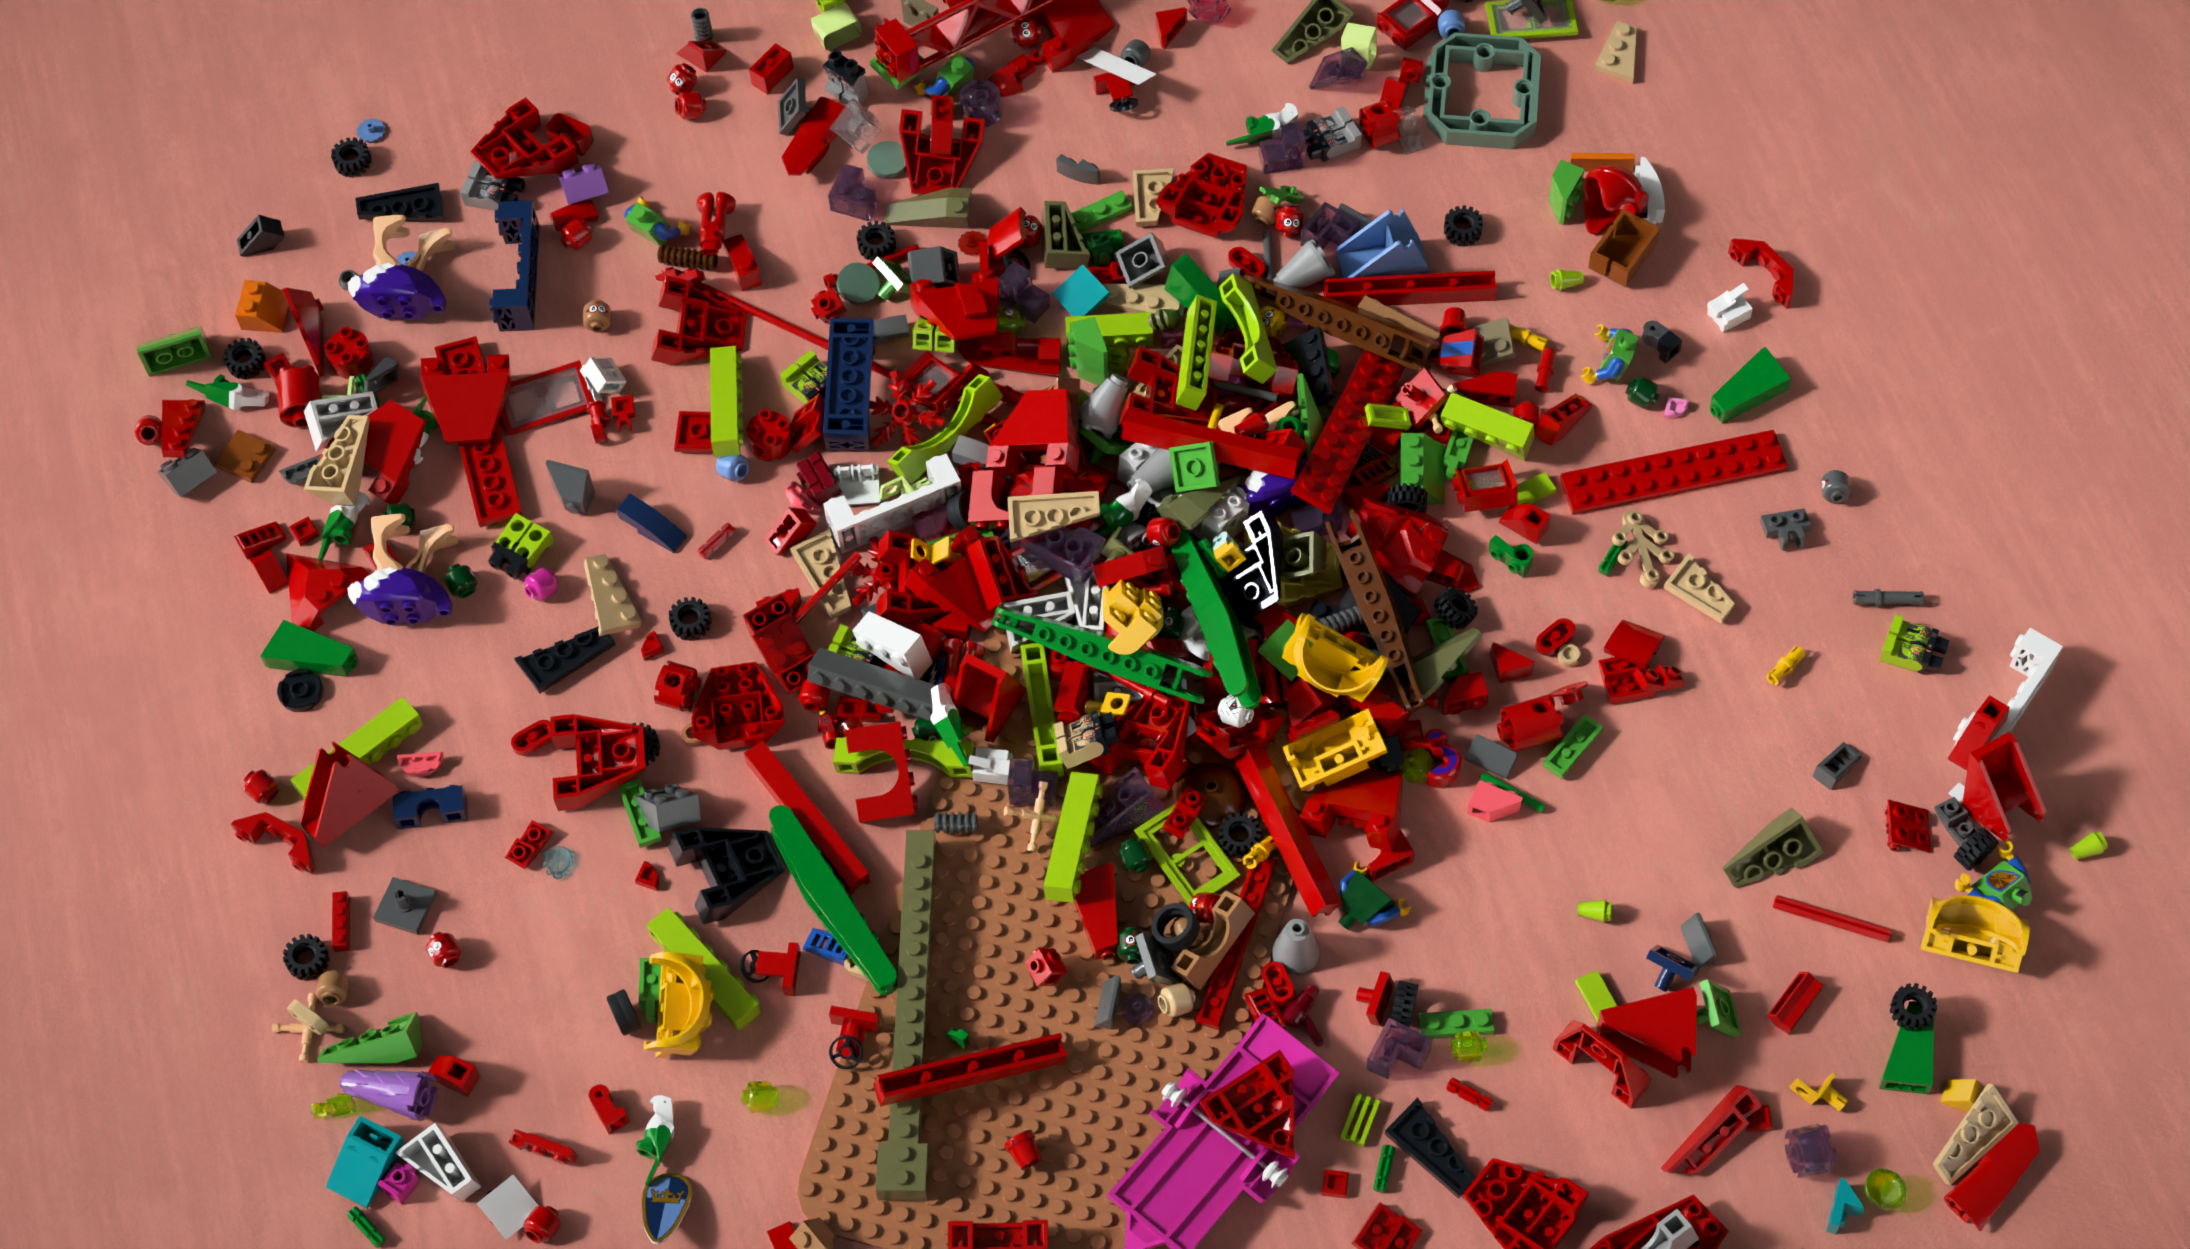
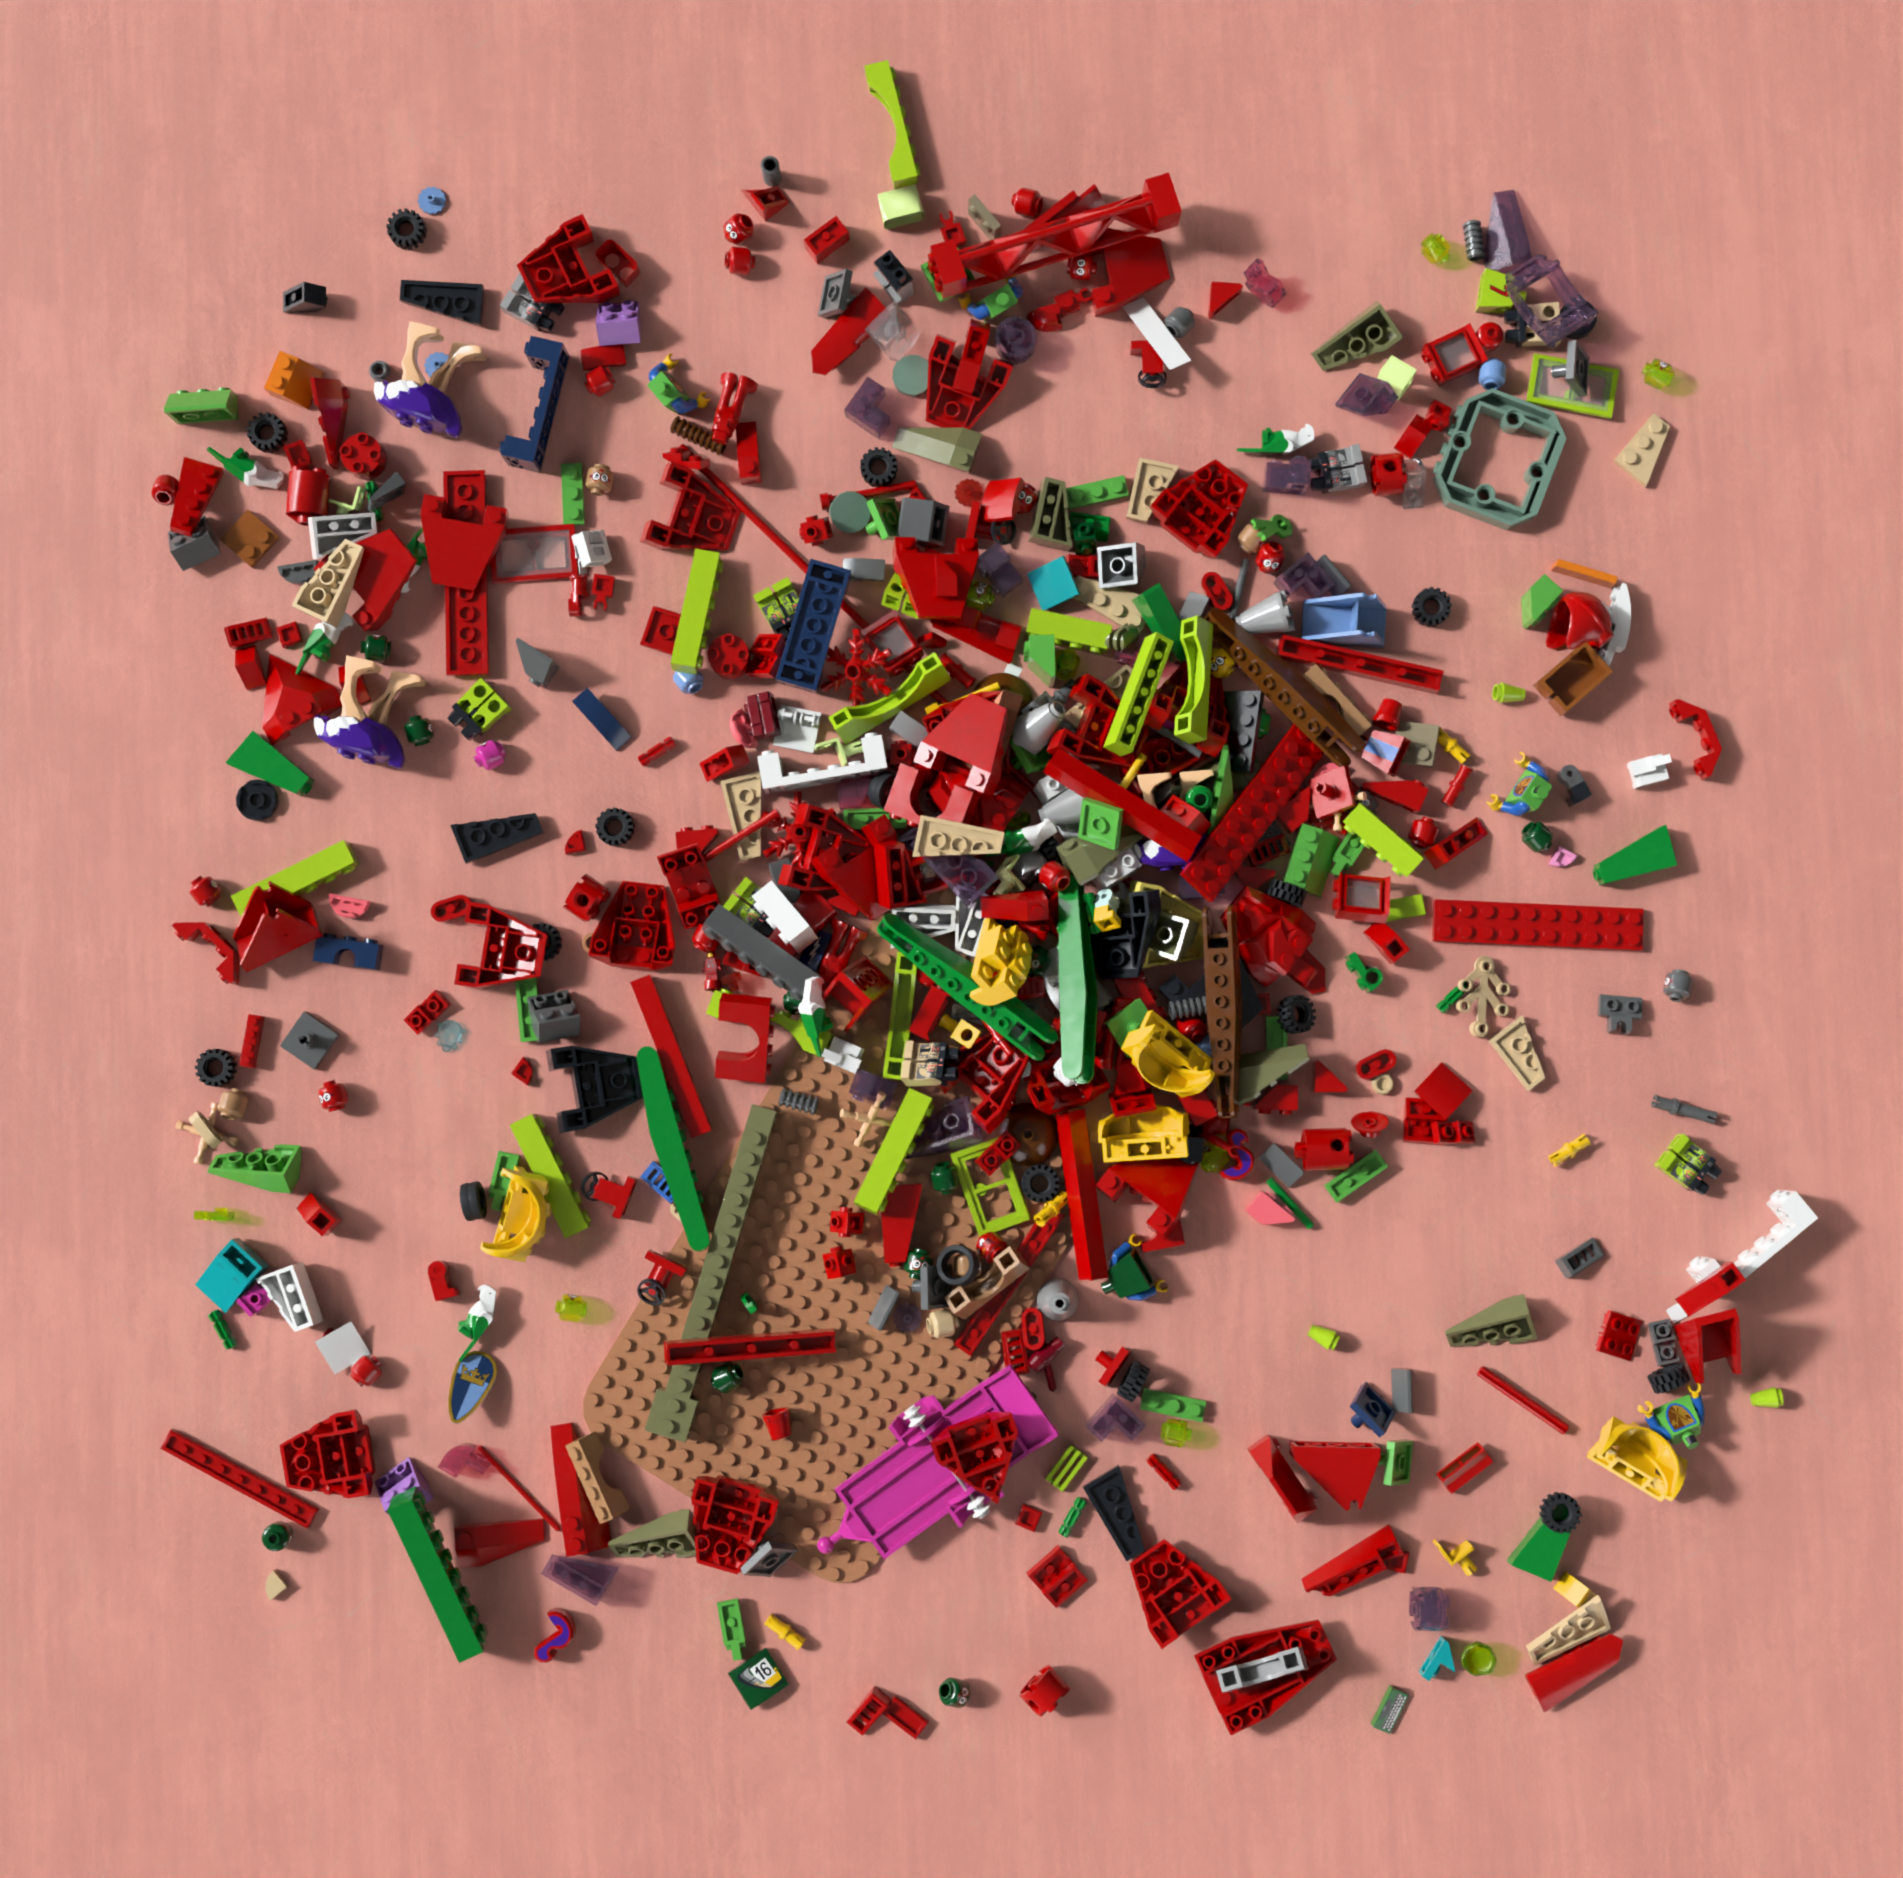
camera: 15 degrees right, 25 degrees up
(398, 1091) = (265, 1218): medium lavender cone -> none
(540, 1146) = (380, 1300): red hinge -> none
(571, 336) = (573, 494): none -> bright green plate
(612, 604) = (549, 793): tan wing -> none
(935, 553) = (846, 835): yellow bracket -> none
(953, 1117) = (727, 1377): none -> dark green head
(1042, 923) = (846, 1222): none -> red brick
(1082, 172) = (1093, 445): dark grey slope -> none
(1254, 424) = (1167, 790): red cone -> none
(1387, 416) = (1295, 805): lime tile -> none
(1595, 993) = (1299, 1414): lime tile -> none

